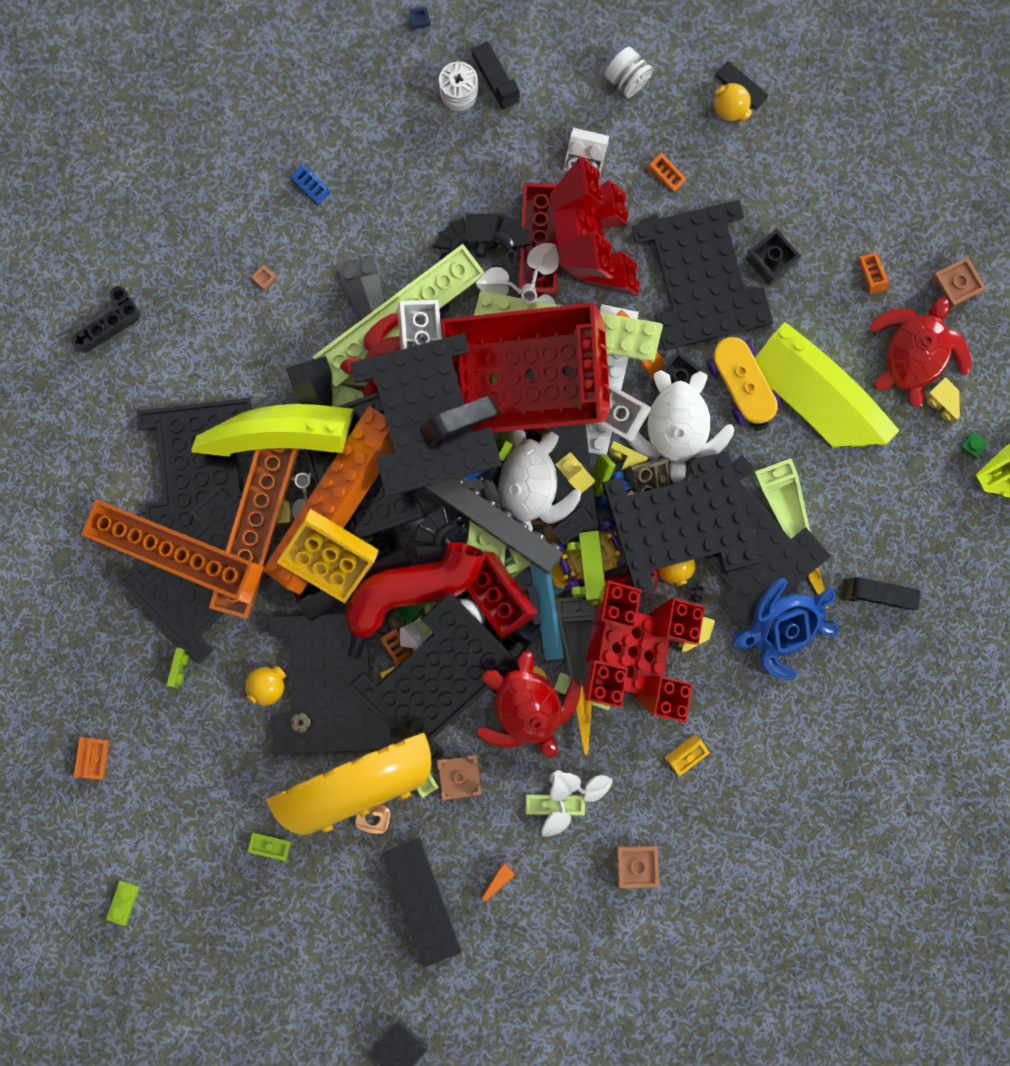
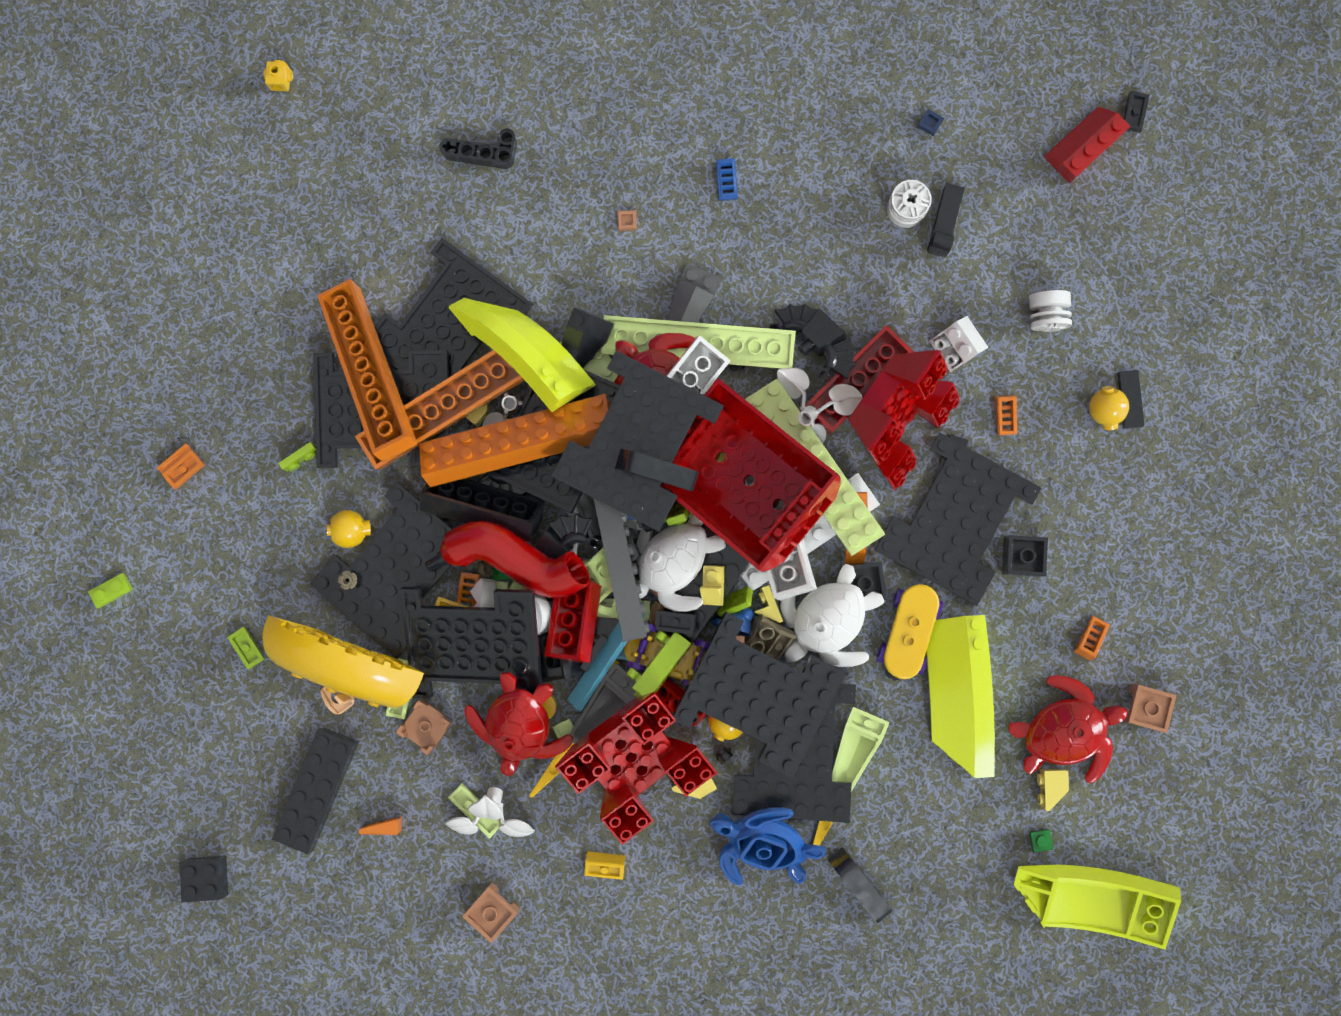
camera: 50 degrees right, 5 degrees up
(328, 556) = (470, 479): yellow slope -> none

